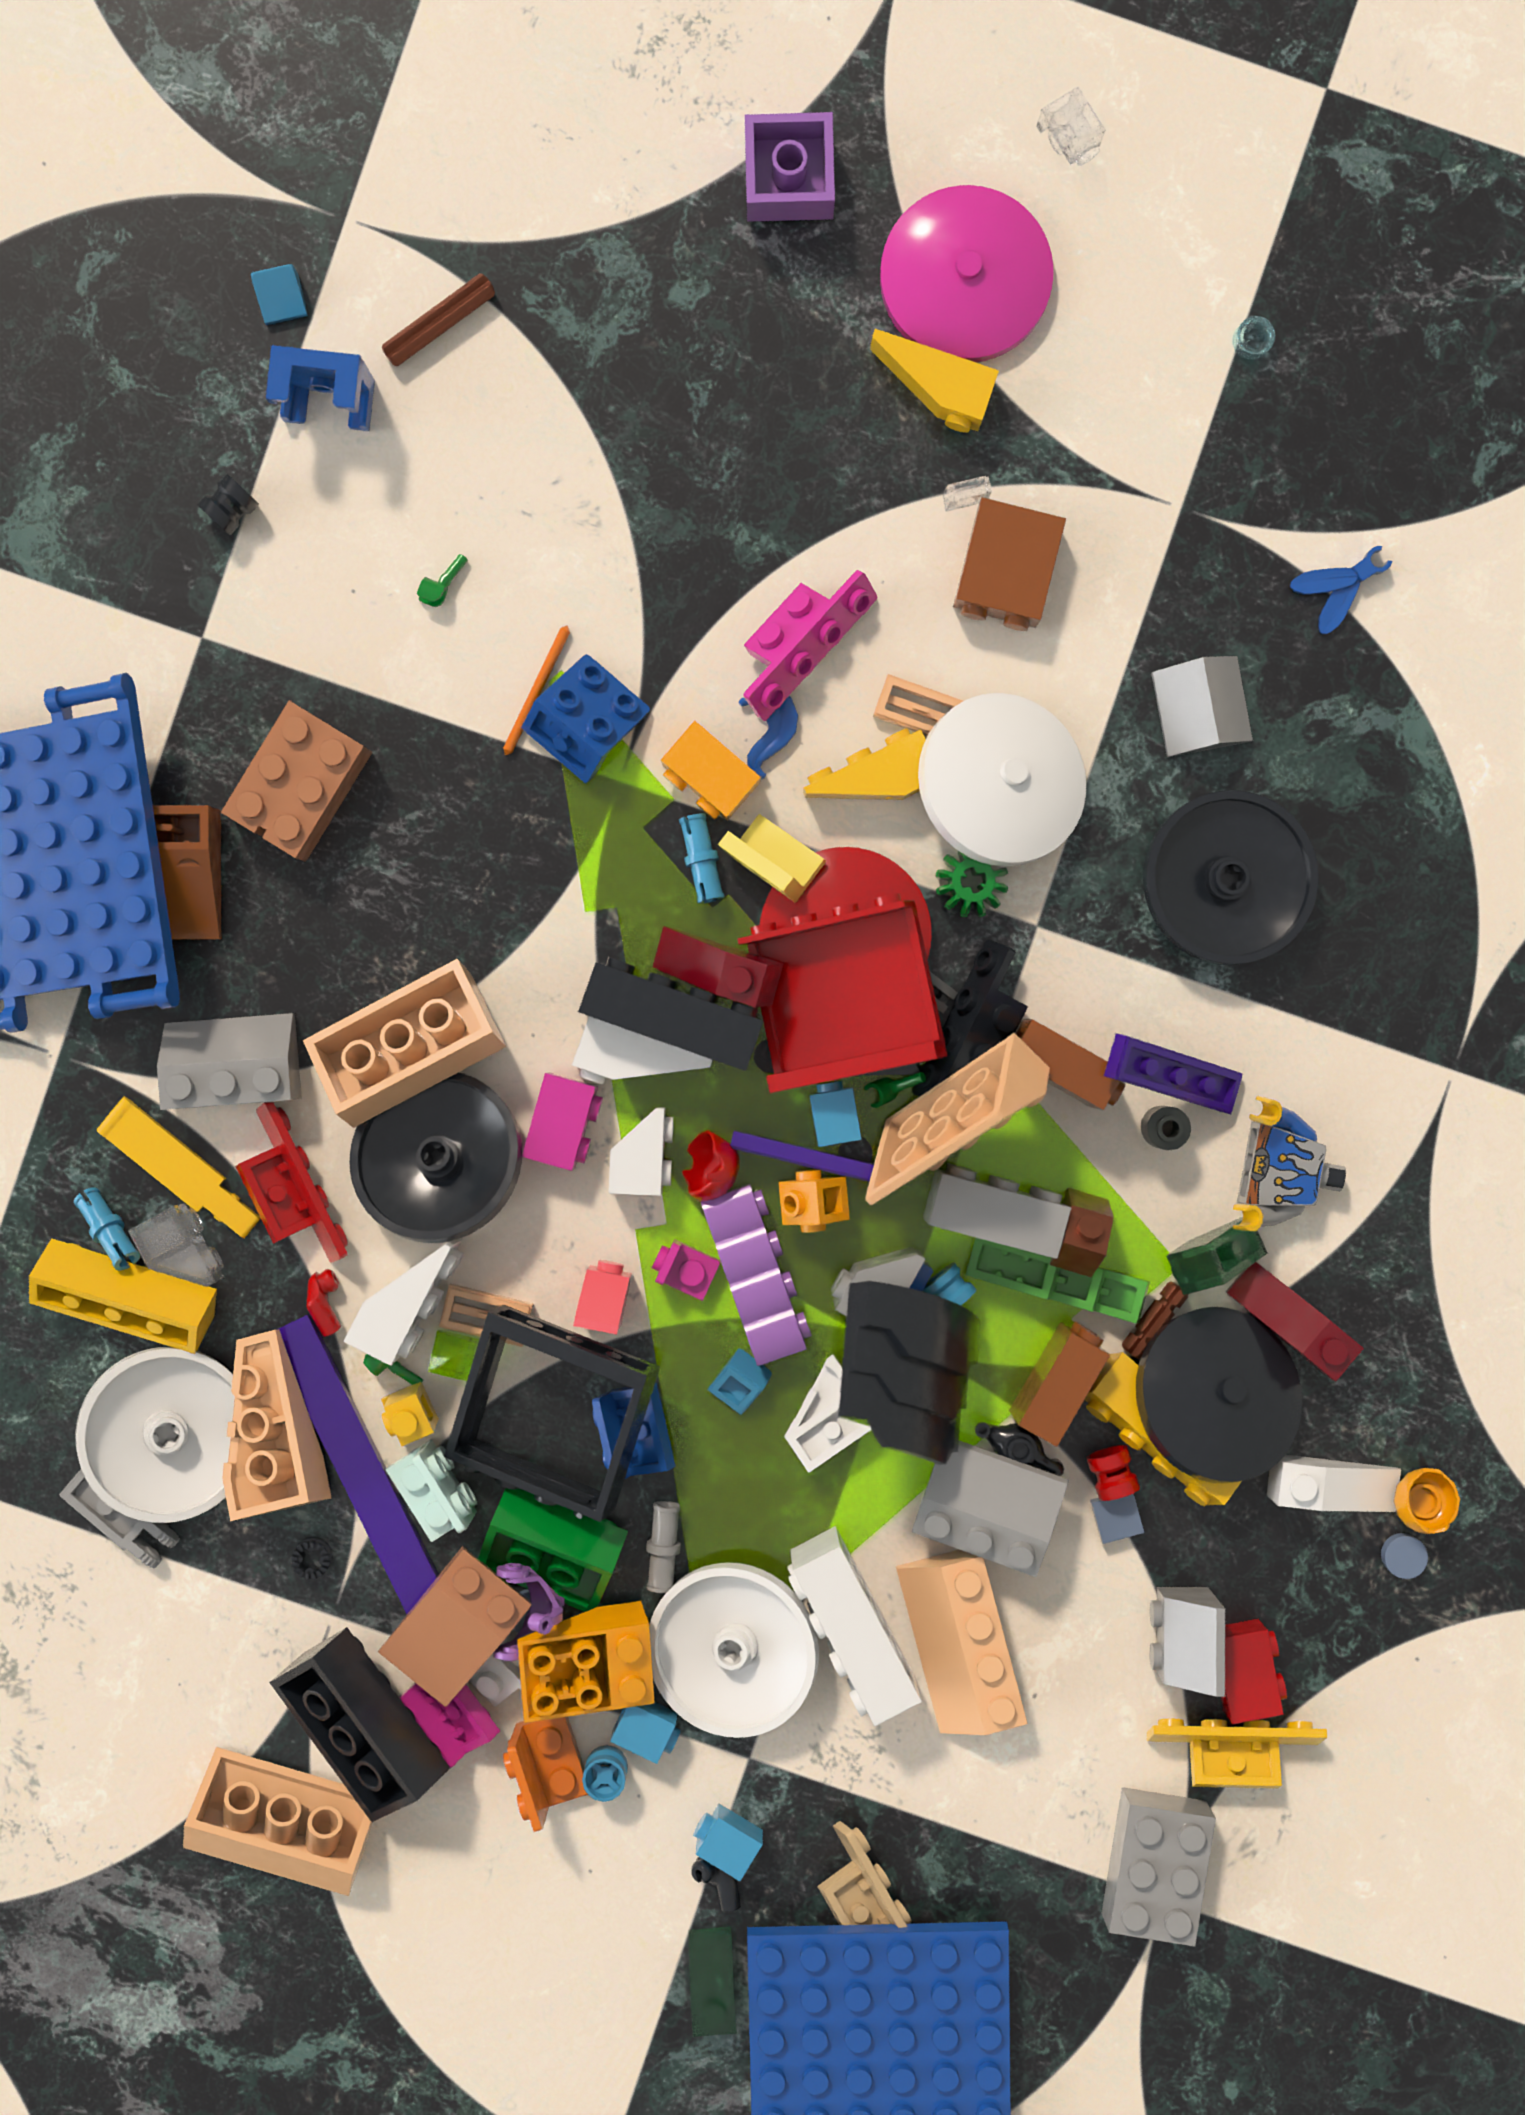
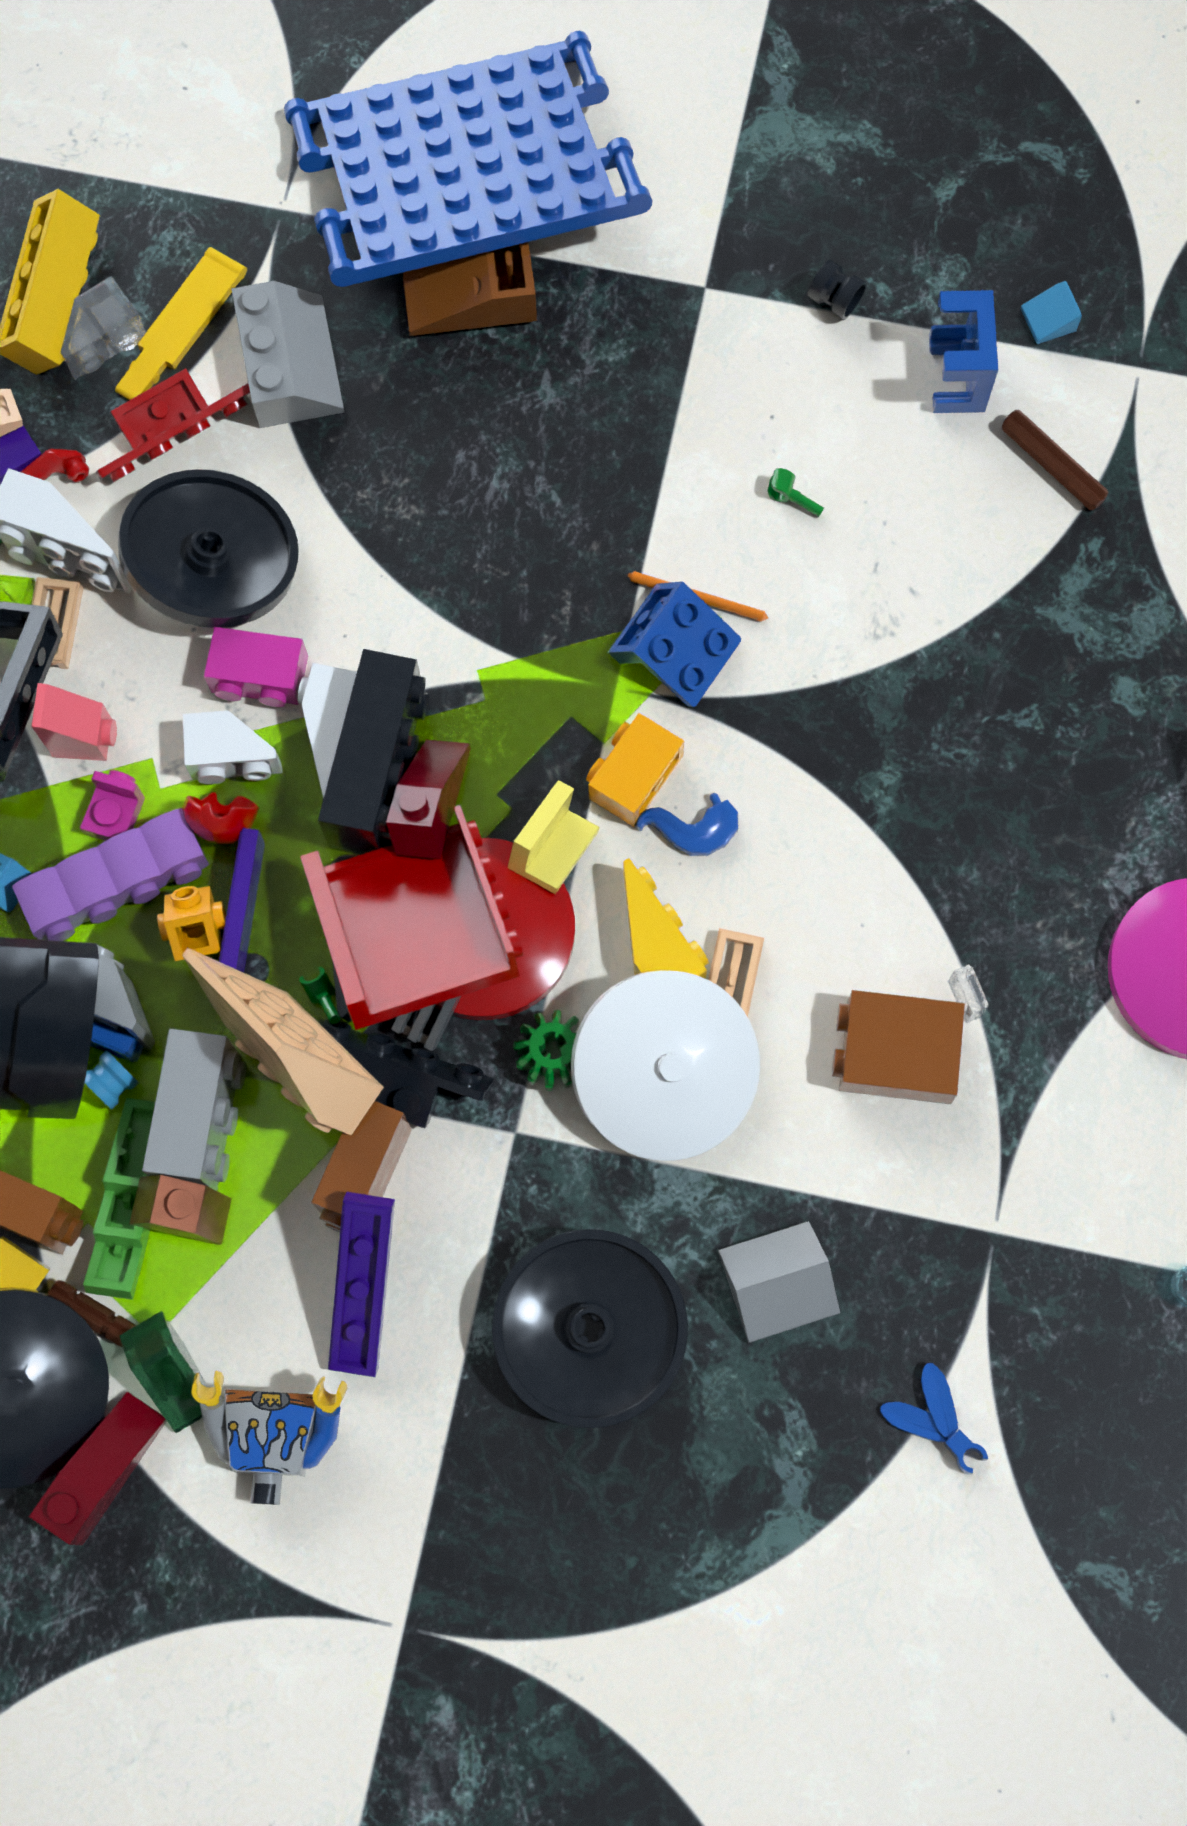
camera: 85 degrees right, 15 degrees down
(106, 1228) = (112, 261): dark azure pin -> none
(296, 781) = (572, 380): nougat piece -> none
(404, 1043) = (319, 503): light nougat brick -> none
(701, 858) = (544, 773): dark azure pin -> none
(800, 637) = (786, 842): dark pink bracket -> none
(834, 1114) = (287, 936): dark azure brick -> none
(943, 382) = (1079, 965): yellow slope -> none
(1152, 1127) = (314, 1302): pearl dark grey brick -> none

